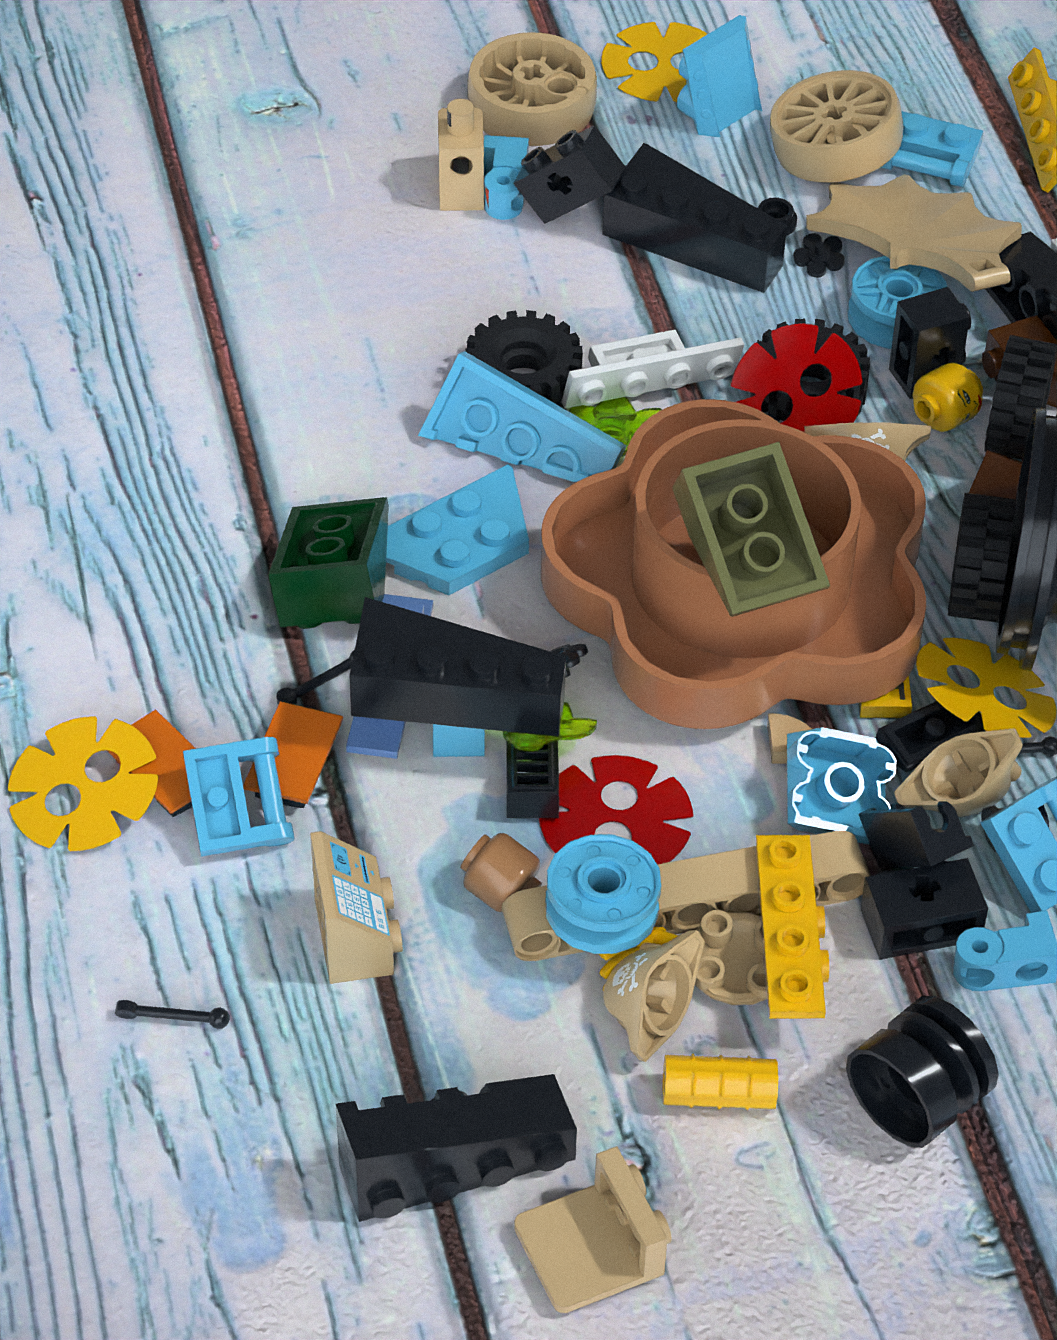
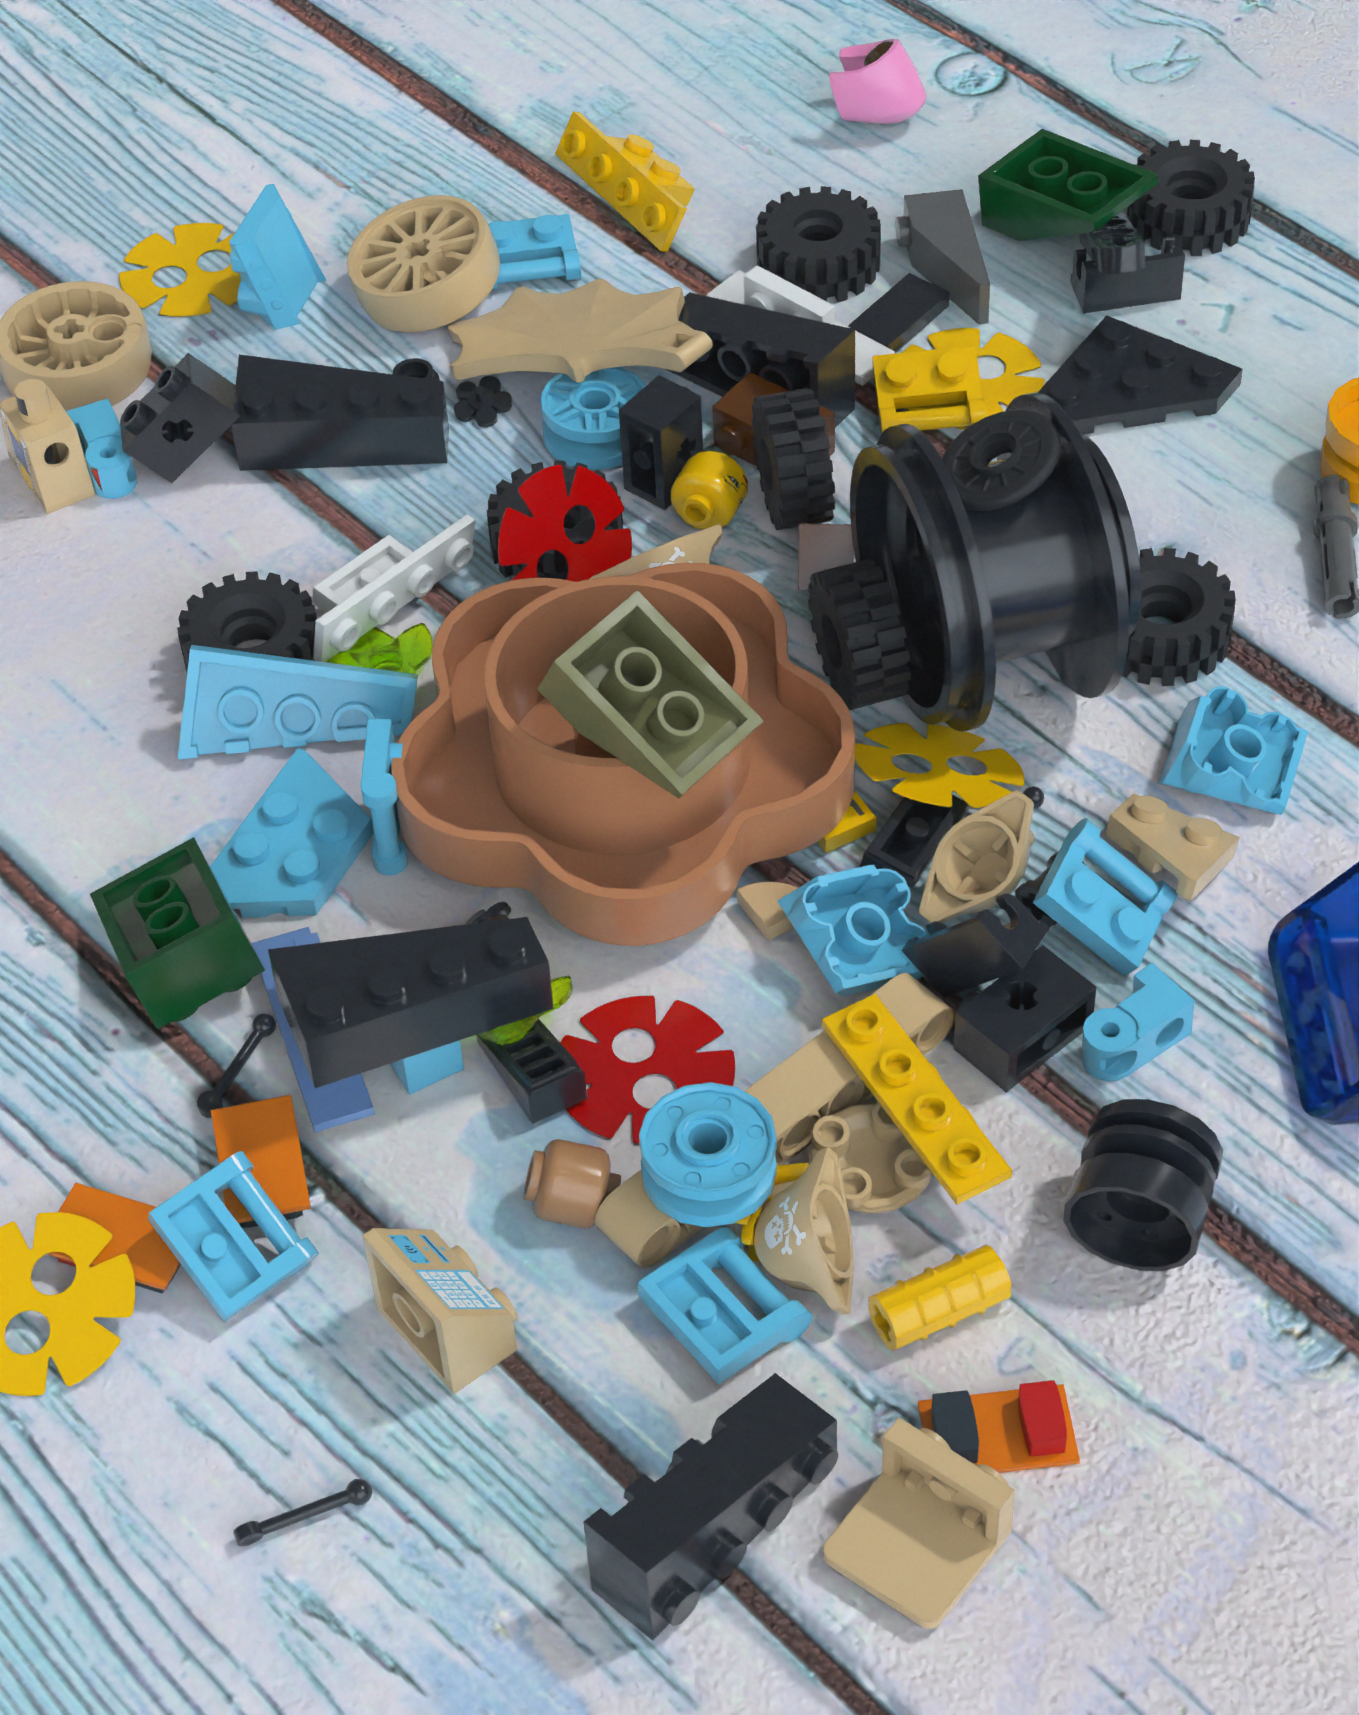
camera: 25 degrees left, 0 degrees up
(529, 522) = (380, 796): none -> medium azure plate
(541, 1013) = (708, 1315): none -> medium azure plate
(708, 1200) = (1005, 1428): none -> piece

